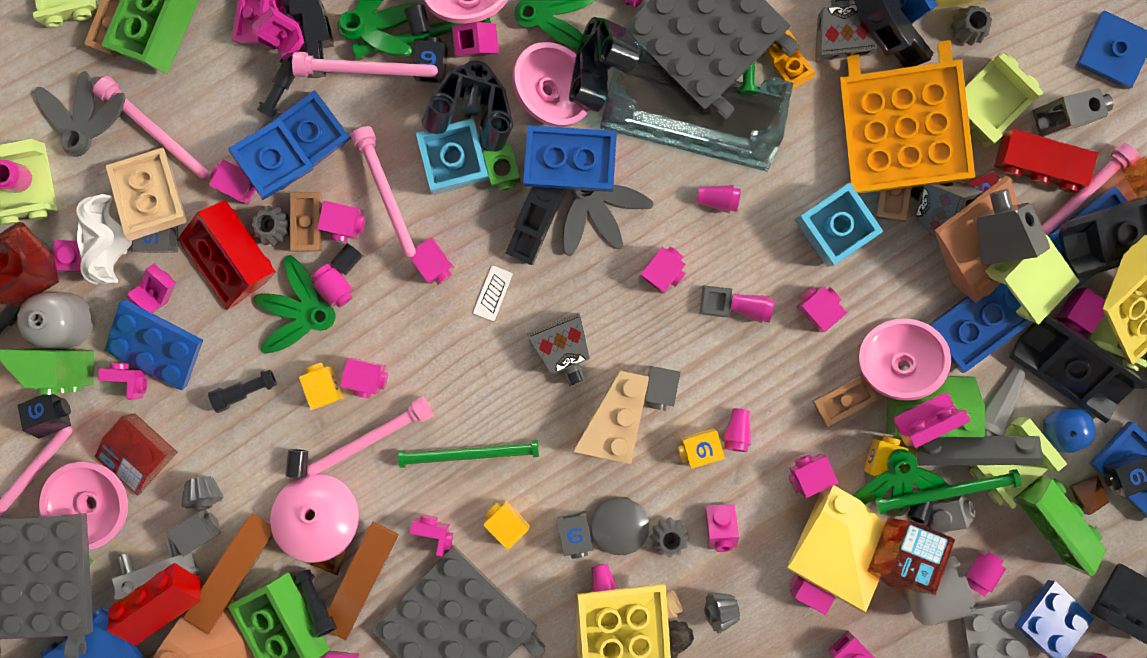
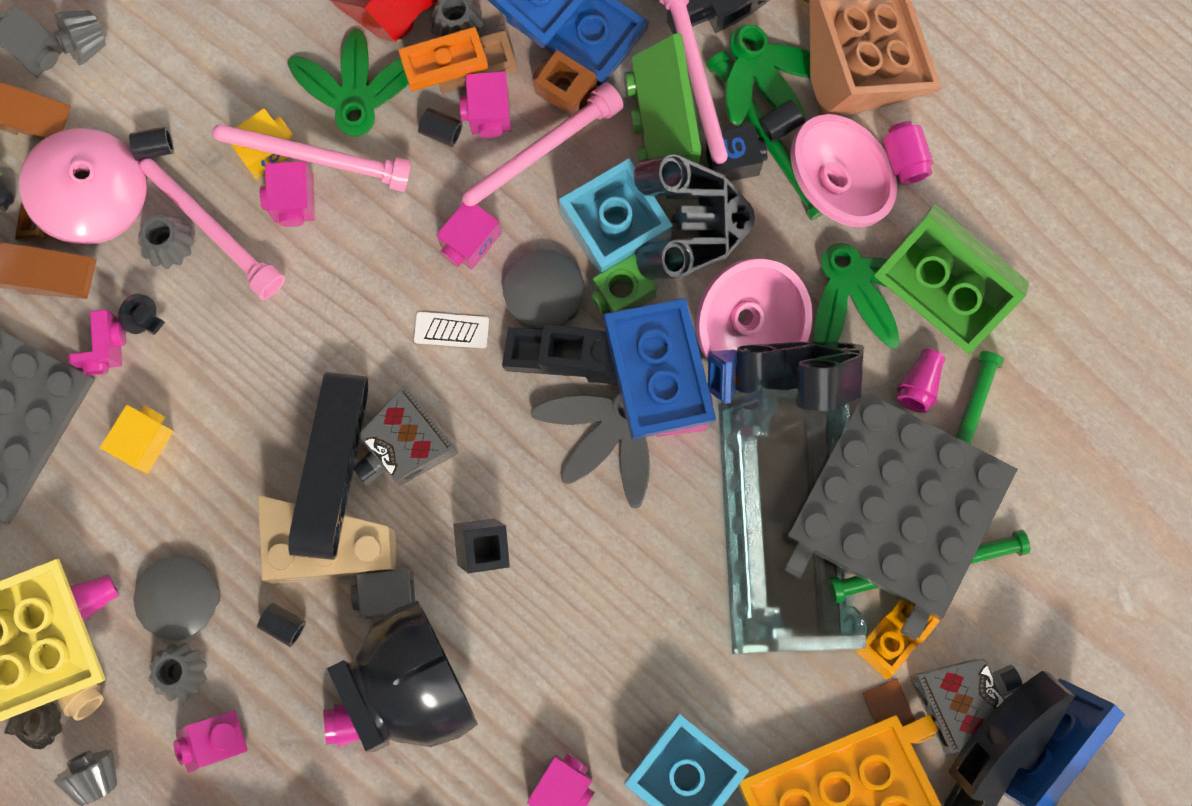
camera: 75 degrees right, 10 degrees down
(223, 398) = (212, 26): black piece -> none
(301, 241) = (443, 59): none -> orange plate
(332, 286) = (398, 118): dark pink brick -> none
(342, 152) = (564, 70): none -> dark orange brick
(363, 478) = (173, 249): none -> dark grey piece
(370, 301) = (391, 172): none -> bright pink piece
(383, 98) = (663, 101): none -> bright green slope
(419, 502) = (139, 315): none -> black plate
(468, 453) = (251, 443): green bar -> none
(475, 39) = (781, 201): dark pink brick -> none
(484, 222) = (543, 289): none -> dark grey dish
(567, 398) = (328, 467): none -> black beam
(575, 535) = (146, 536): dark grey brick -> none
(585, 118) = (722, 374): none -> blue slope
(650, 313) = (481, 545): none -> black brick
(659, 461) = (281, 624): none -> black hinge
(664, 269) = (550, 548): dark pink brick -> none
(701, 448) = (309, 676): yellow brick -> none
(715, 301) = (528, 636): dark grey tile -> none
(723, 198) = (674, 597): dark pink cone -> none
(729, 388) = (403, 685): none -> black plate
(753, 306) = (535, 692): dark pink cone -> none
(829, 81) = (887, 702): none -> dark orange sticker

